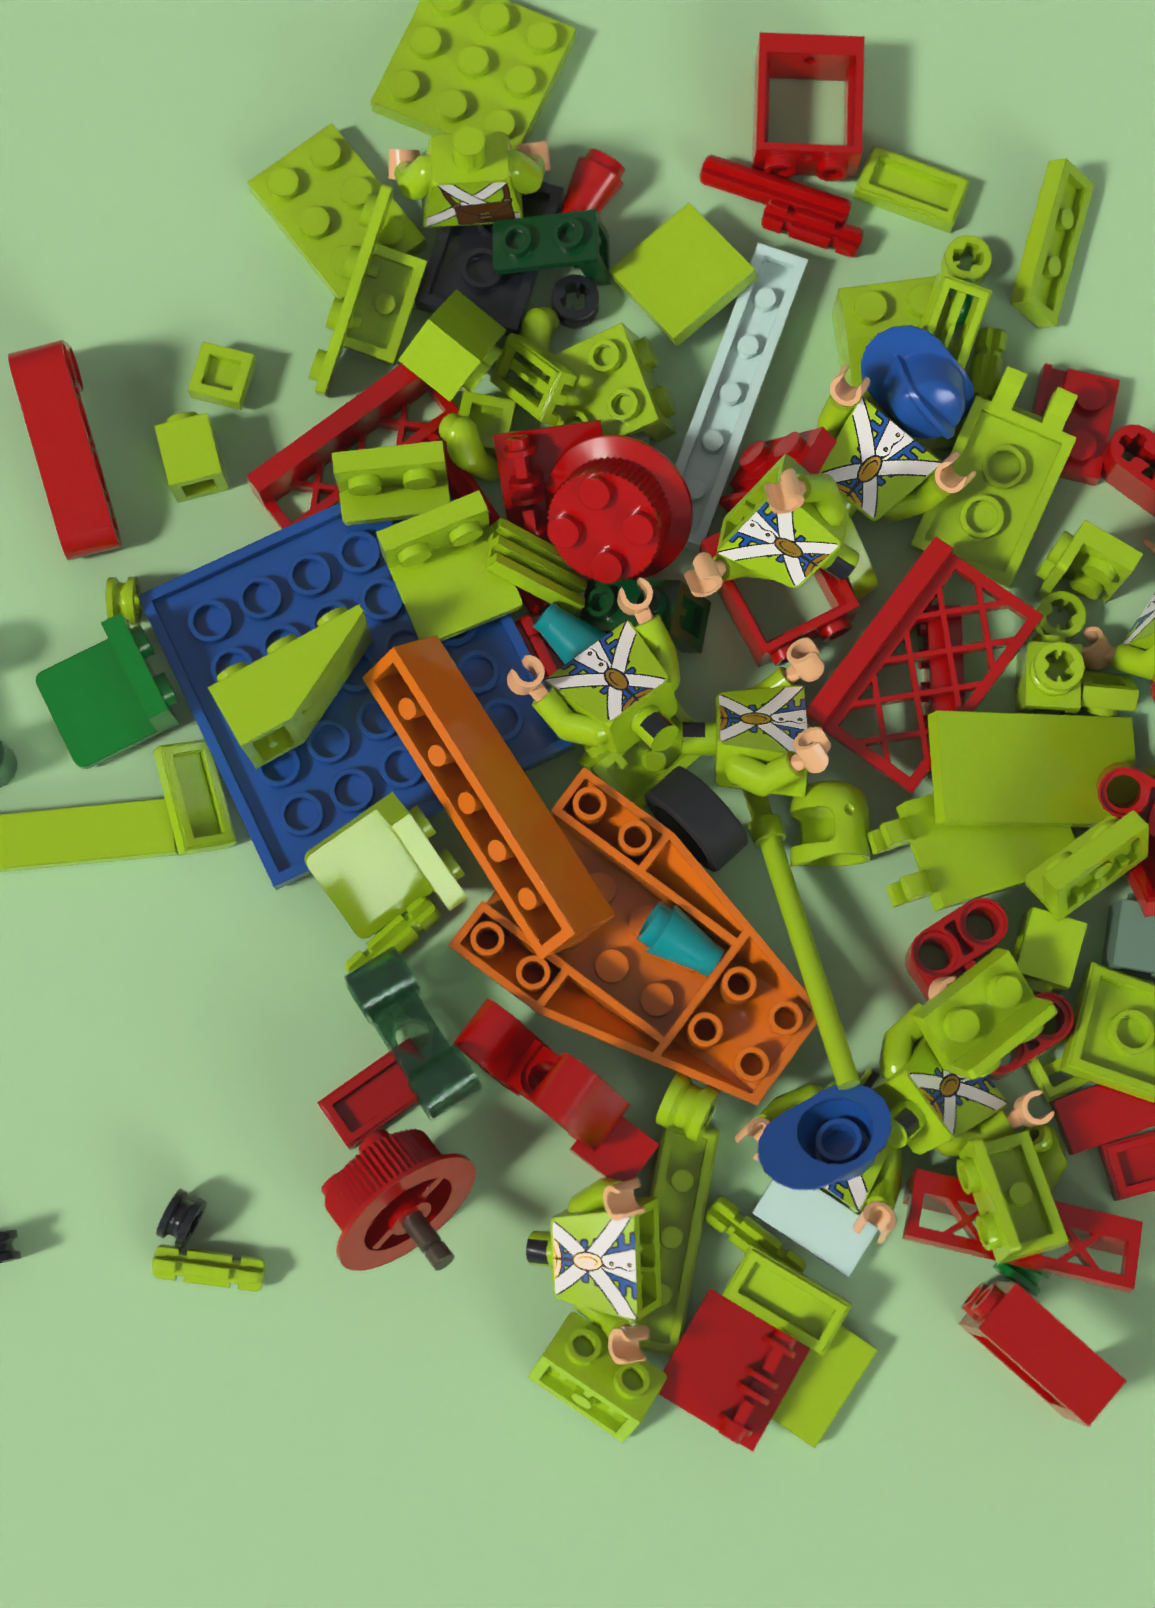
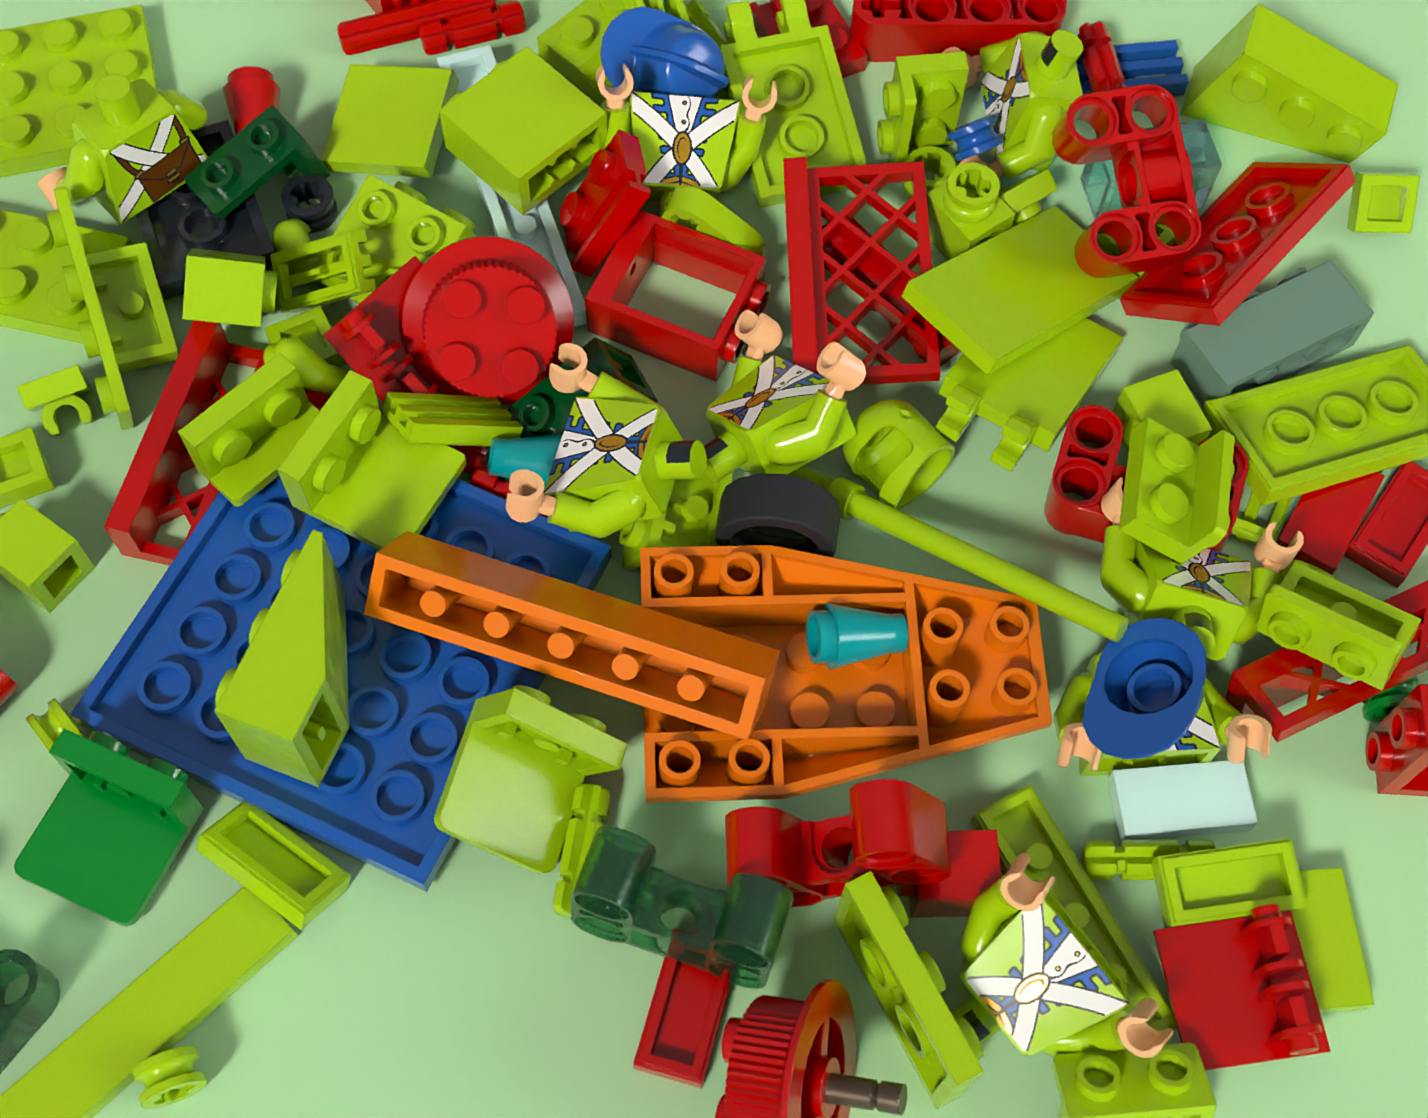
camera: 40 degrees left, 15 degrees down
(37, 888) = (169, 1077): none -> lime bush
(289, 335) = (56, 392): none -> lime tile
(514, 1198) = (908, 990): none -> lime plate
(687, 1107) = (990, 778): lime wheel -> none
(763, 366) = (524, 129): none -> lime brick
(780, 533) = (654, 224): torso -> none
(1089, 863) = (1137, 315): lime bracket -> none
(1113, 618) = (975, 137): none -> blue bush

